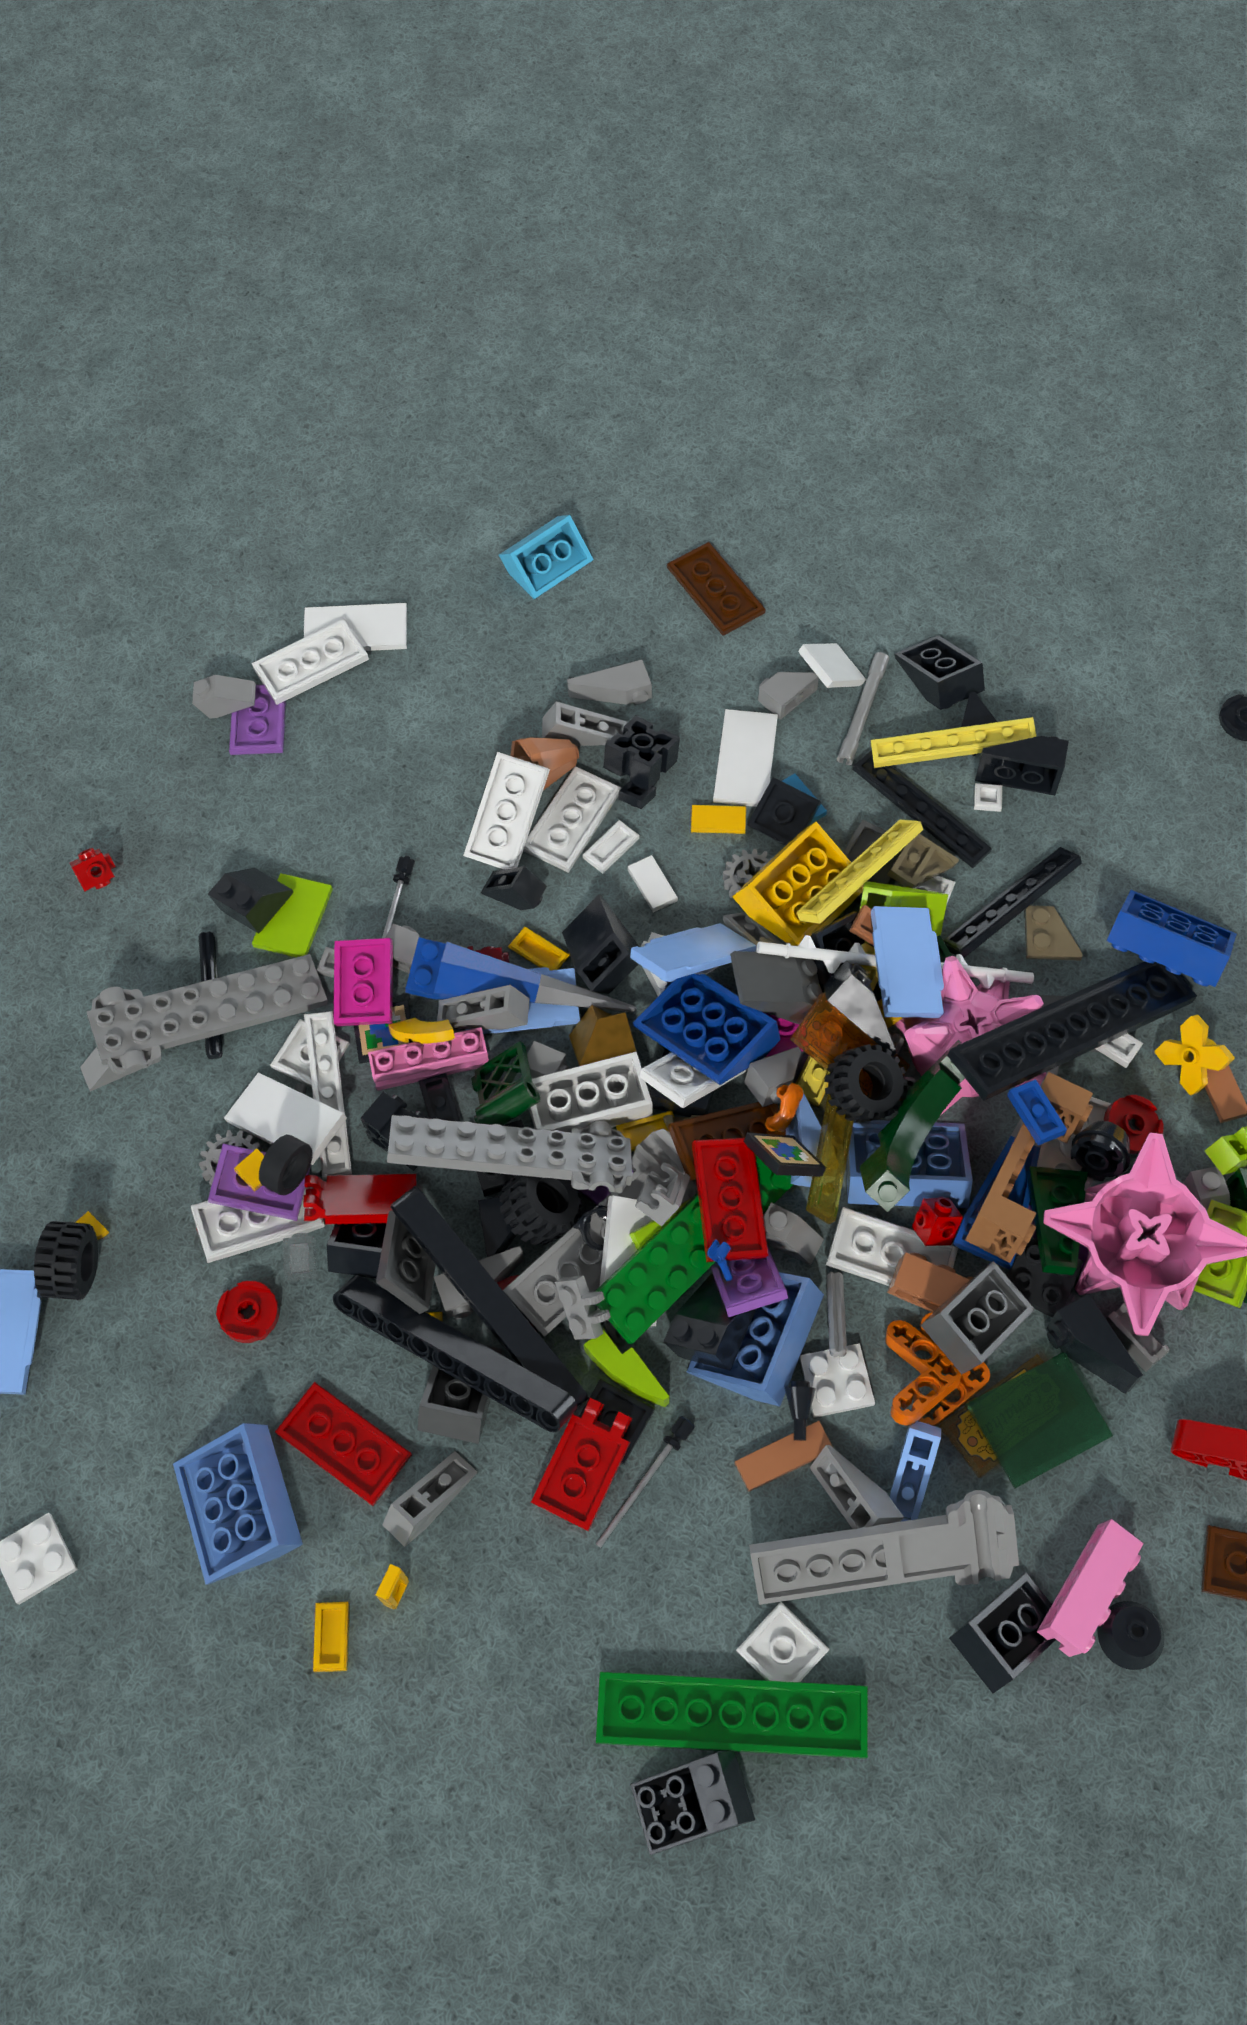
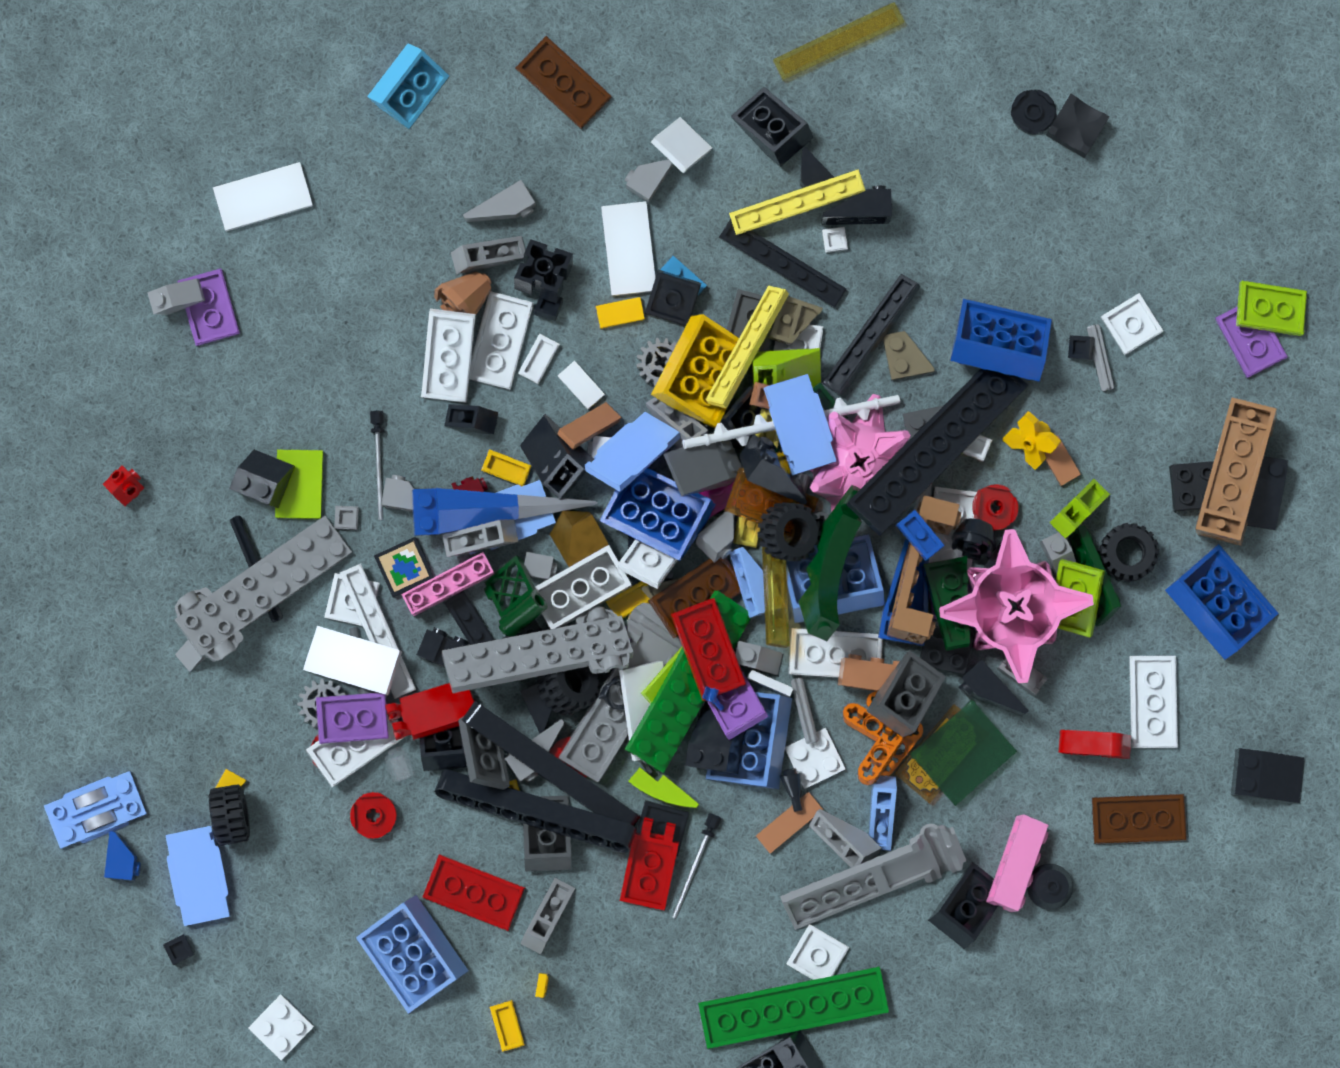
camera: 20 degrees left, 20 degrees up
(249, 1169) = (348, 712): yellow tile -> none
(285, 1164) = (372, 706): black tyre -> none
(310, 661) = (237, 243): white tile -> none
(363, 982) = (378, 535): dark pink plate -> none
(422, 1031) = (433, 566): yellow tile -> none
(579, 1307) = (621, 757): light grey hinge -> none
(648, 919) = (589, 425): none -> nougat tile
(662, 1196) = (658, 658): light grey hinge -> none
(784, 1155) = (741, 607): tile -> none
(790, 1099) = (734, 556): orange piece -> none
(794, 1265) = (770, 683): none -> white tile
(875, 674) = (719, 141): light grey piece -> none
(937, 1221) = (863, 624): red brick -> none
(1032, 608) = (838, 41): none -> clear yellow tile

